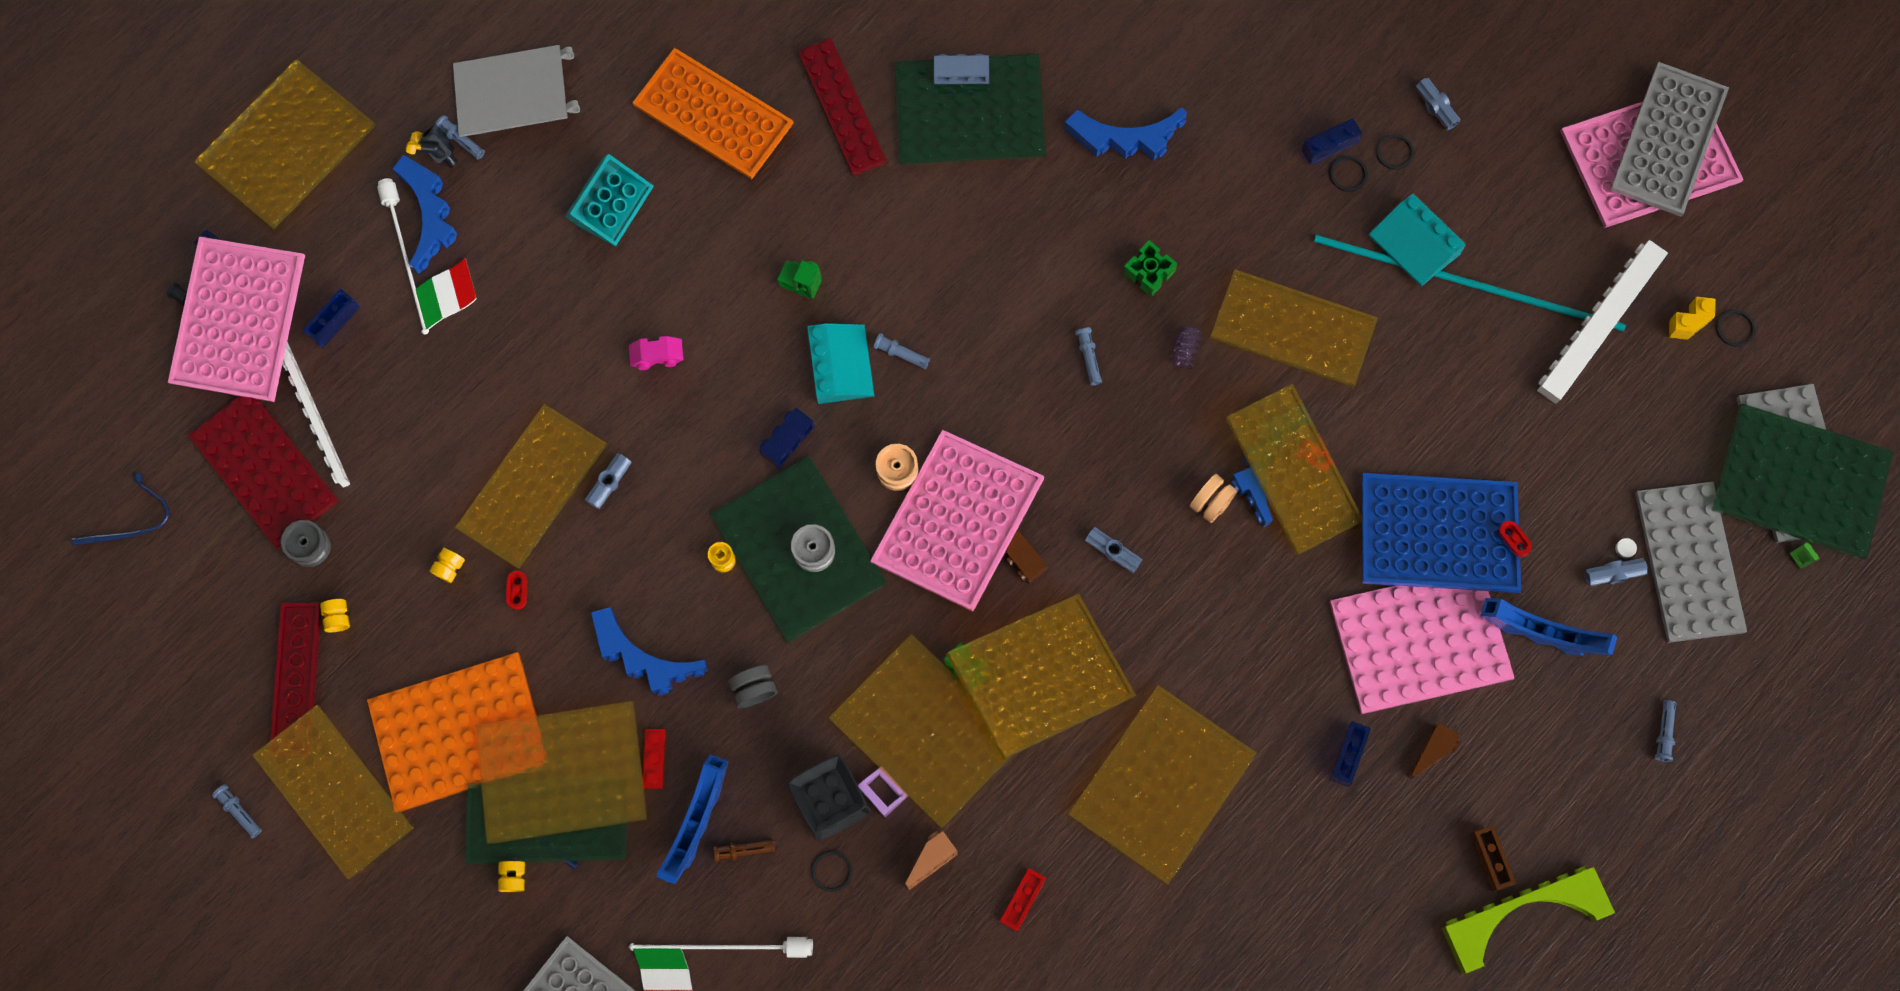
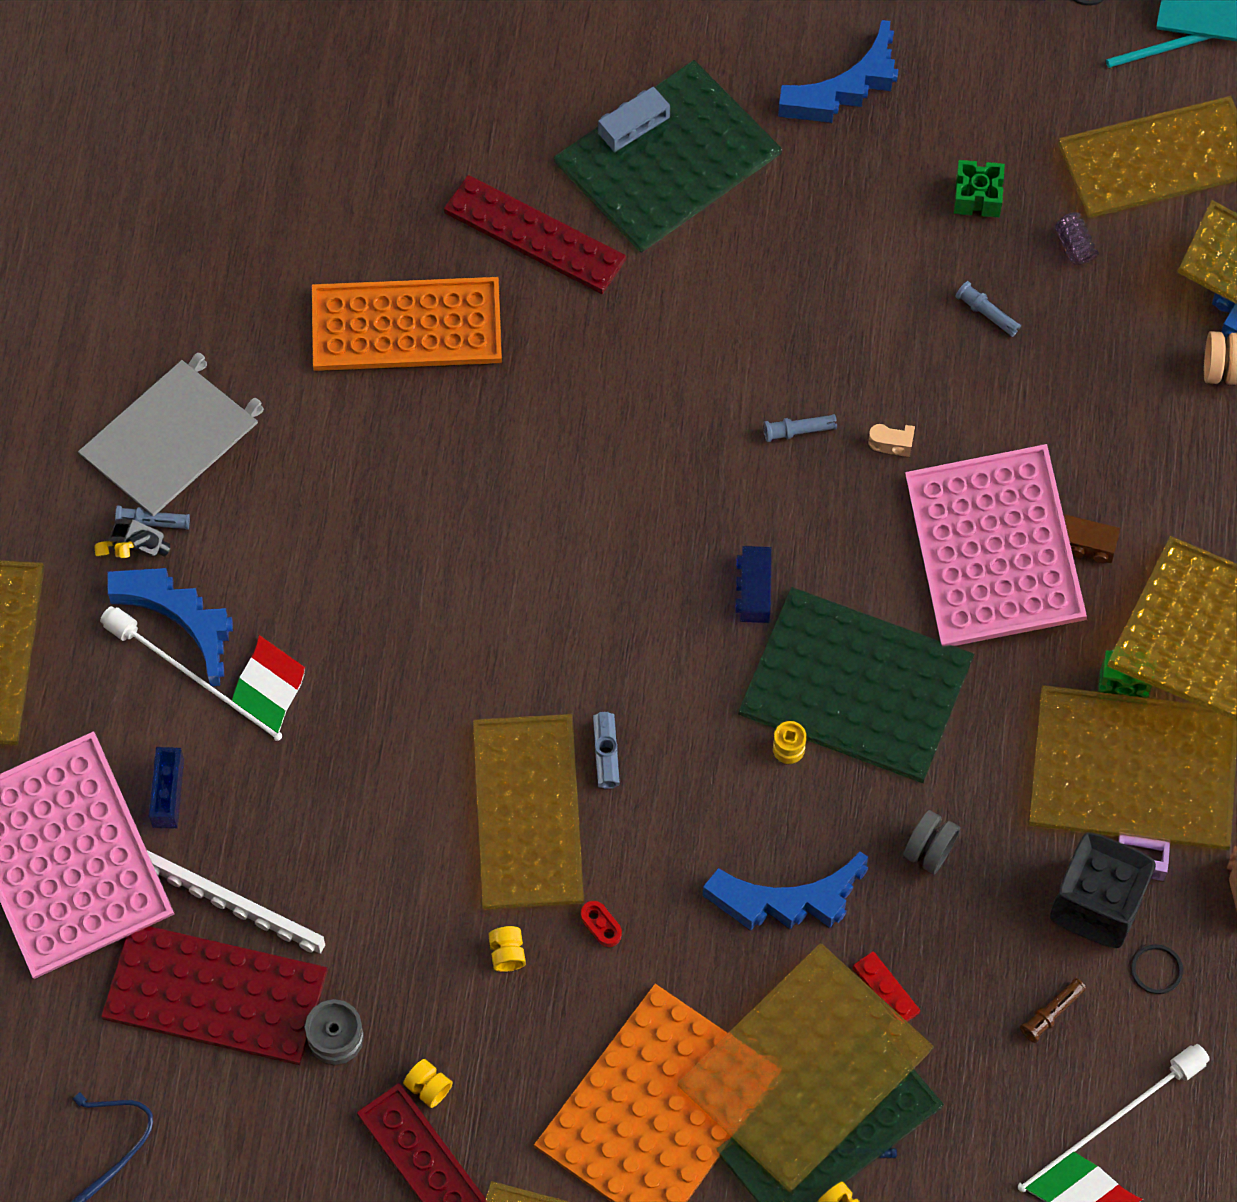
camera: 40 degrees left, 10 degrees down
(609, 200) = (368, 476): teal slope -> none
(664, 351) = (542, 596): dark pink brick -> none
(696, 820) = (985, 1014): blue arch -> none
(801, 278) = (639, 423): green brick -> none
(803, 542) = (879, 665): light grey wheel -> none
(840, 362) = (744, 478): teal slope -> none
(887, 461) = (892, 536): light nougat wheel -> none
(952, 402) = (891, 440): none -> light nougat leg
(1103, 542) = (1155, 473): sand blue piece -> none

